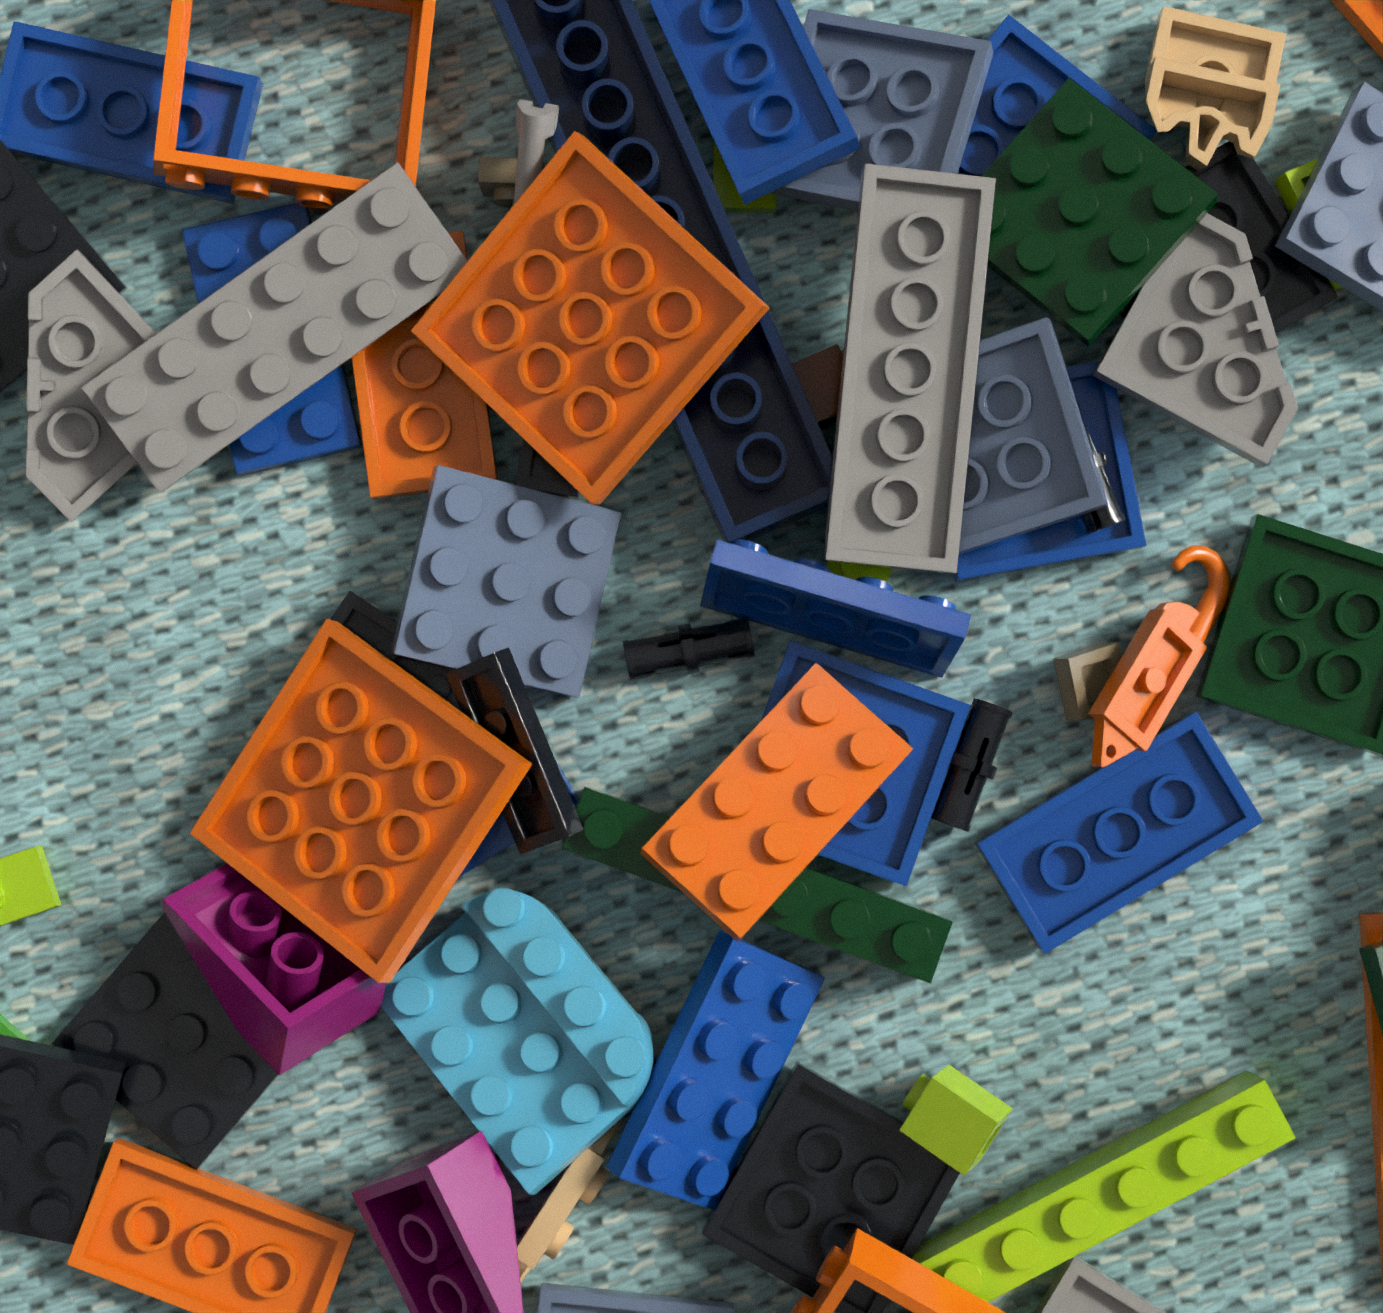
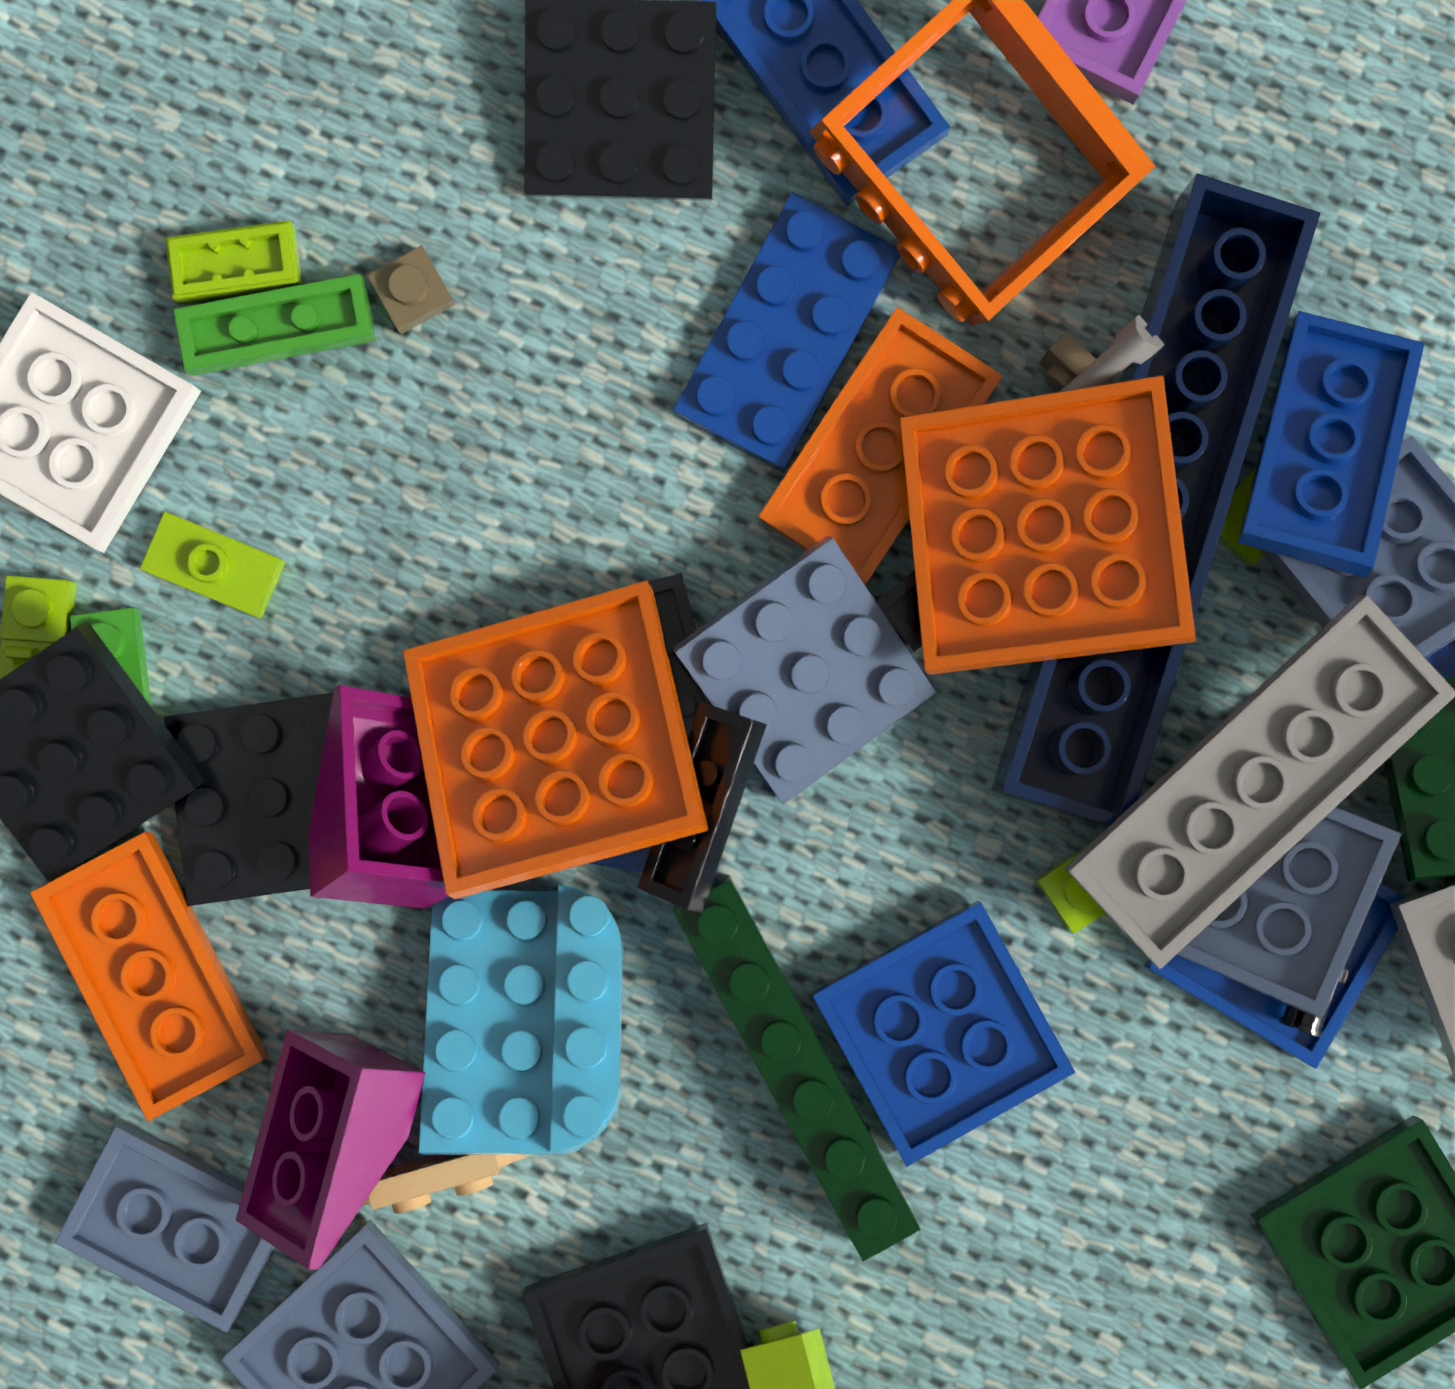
camera: 35 degrees right, 0 degrees up
(74, 335) = (626, 254): light grey plate -> none
(277, 328) = (802, 328): light grey plate -> none
(688, 648) = (898, 840): black pin -> none
(715, 1072) = (639, 1180): blue plate -> none
(776, 802) = (866, 1021): orange plate -> none
(821, 382) = (1181, 731): reddish brown plate -> none
(834, 609) = (1038, 911): blue plate -> none
(971, 764) = (1036, 1117): black pin -> none
(1083, 676) = (1183, 1135): dark tan plate -> none
(1118, 833) = (1103, 1267): blue plate -> none
(1157, 664) = (1245, 1167): orange plate -> none

